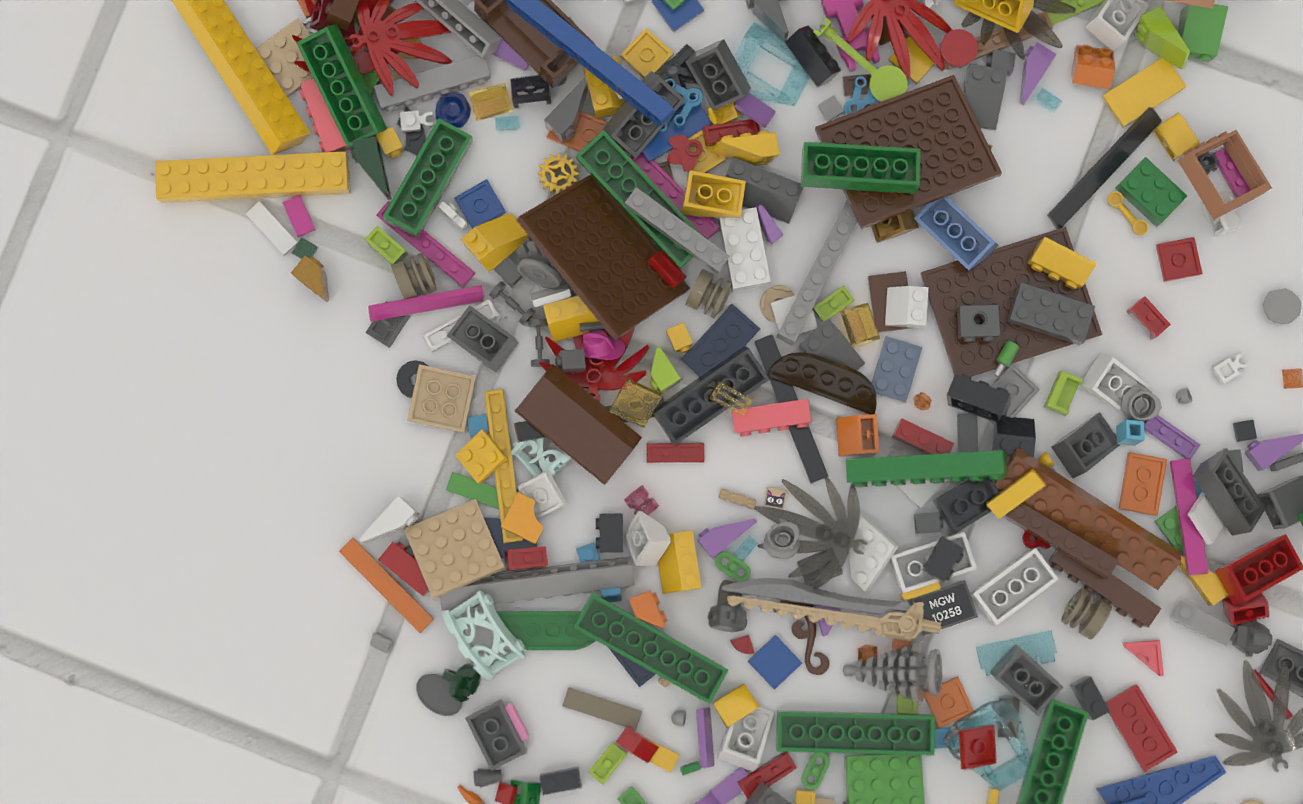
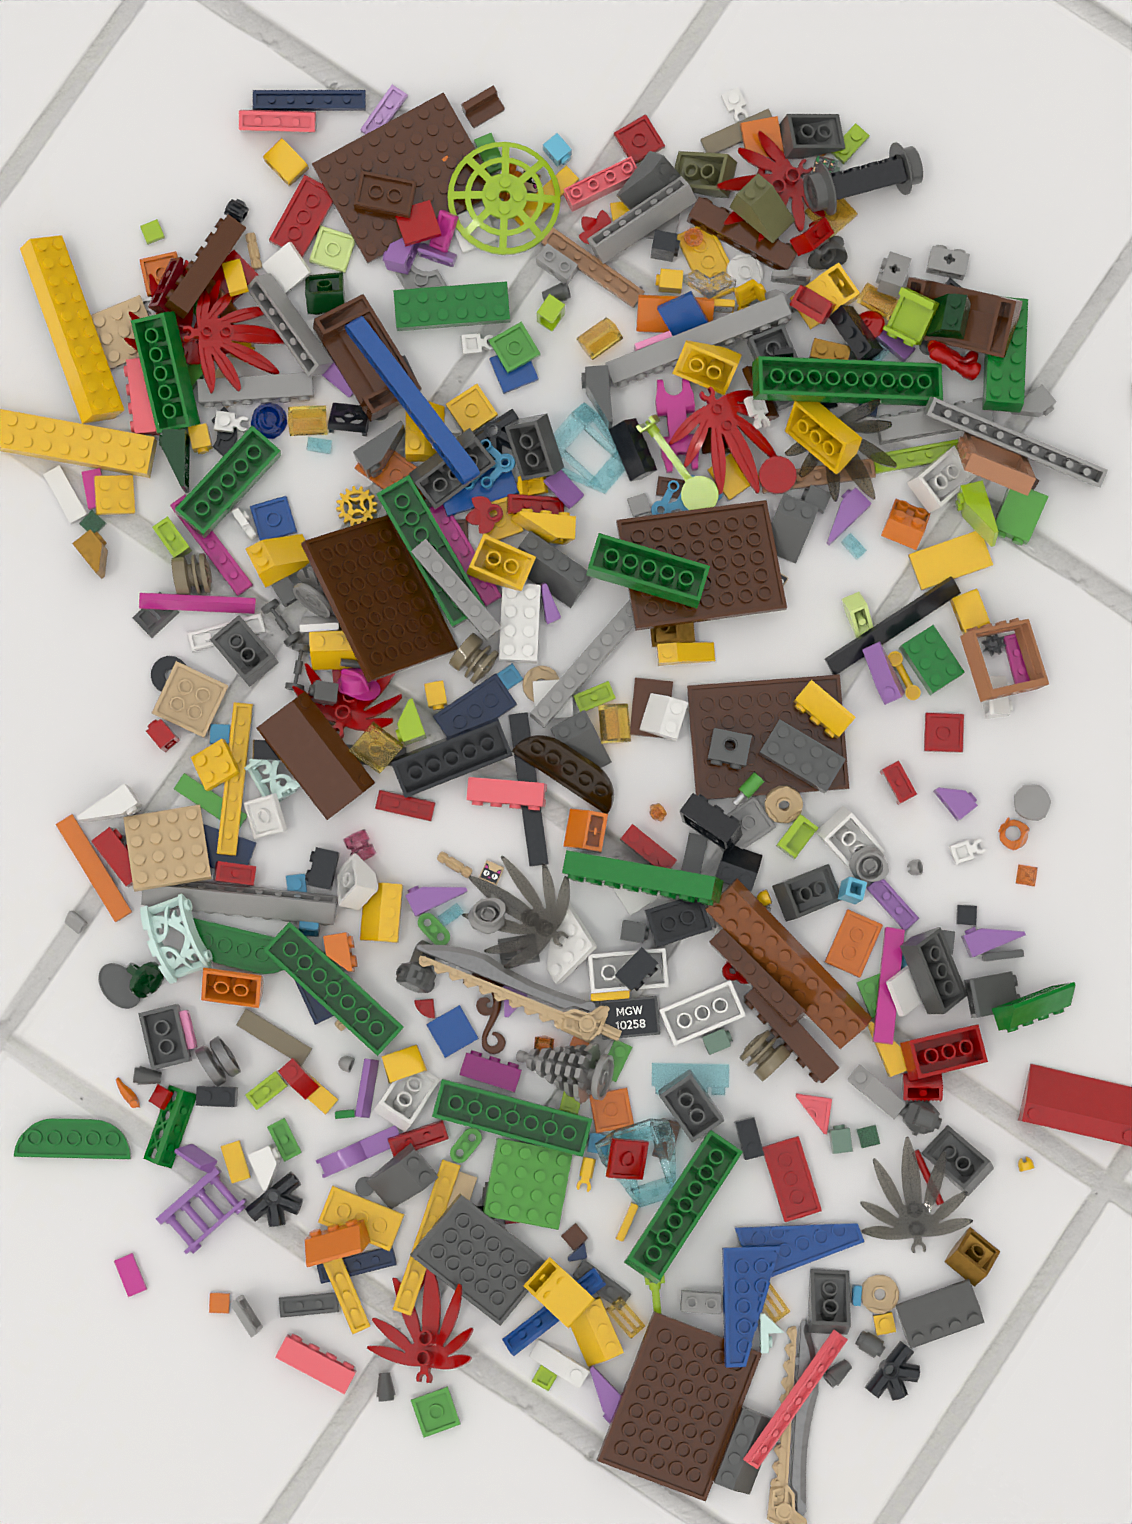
camera: 10 degrees right, 0 degrees up
(319, 217) = (114, 495): none -> yellow plate
(422, 439) = (162, 735): none -> red brick
(521, 519) = (239, 835): light orange tile -> none
(550, 671) = (232, 987): none -> orange slope
(557, 743) = (215, 1062): none -> flat silver wheel
(667, 269) = (439, 624): red tile -> none
(717, 391) = (473, 758): clear yellow tile -> none
(746, 303) = (510, 676): none -> dark azure tile
(822, 692) = (490, 1071): none -> magenta brick
(896, 368) = (640, 774): sand blue plate -> none
(907, 242) = (685, 653): none -> yellow slope
(939, 769) = (586, 1172): none -> yellow bar
(944, 644) = (620, 1053): none -> bright green plate
(956, 232) = (730, 655): medium blue slope -> none
(1016, 494) = (722, 922): yellow tile -> none
(1033, 359) = (780, 794): none -> tan tile
(1035, 610) = (717, 1041): none -> sand green brick
(1068, 164) = (857, 613): none -> yellowish green slope
(1108, 215) = (883, 673): none -> medium lavender slope
(1178, 678) = (840, 1139): none -> sand green brick
(1203, 668) = (868, 1136): none -> clear green tile
(1209, 323) = (956, 801): none -> medium lavender slope
(1272, 352) = (1014, 845): none -> orange piece

